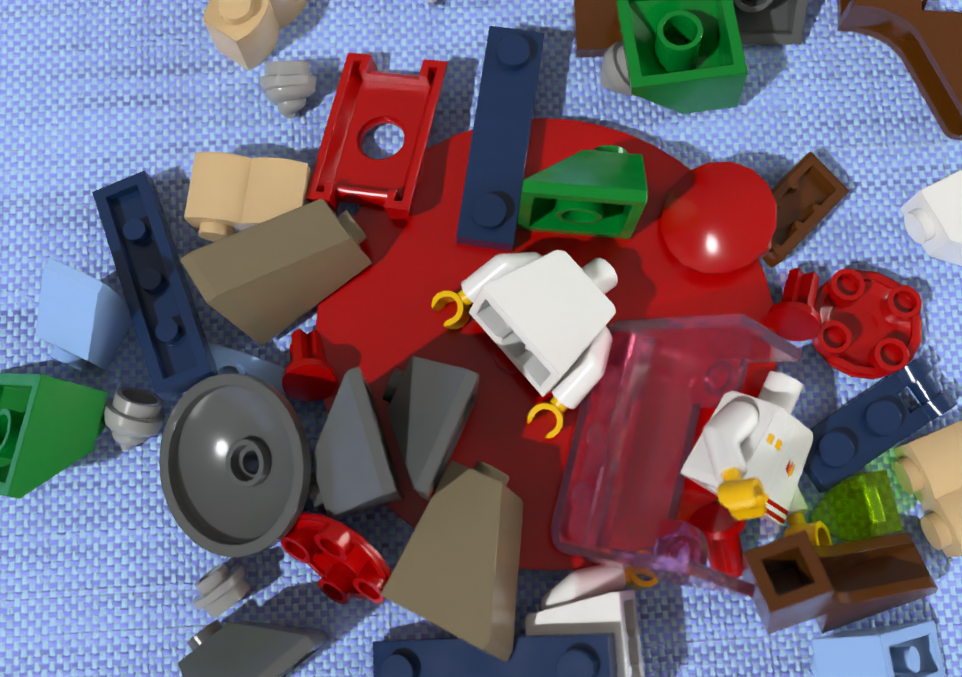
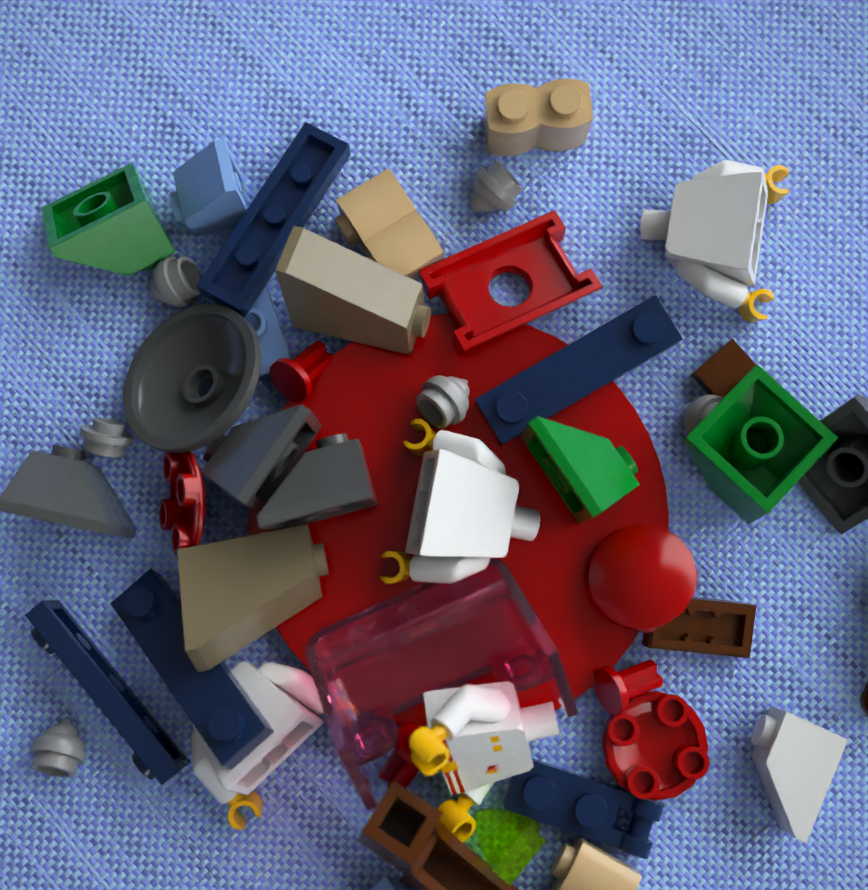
camera: 55 degrees right, 5 degrees up
(436, 264) = (443, 400): none -> light grey plate

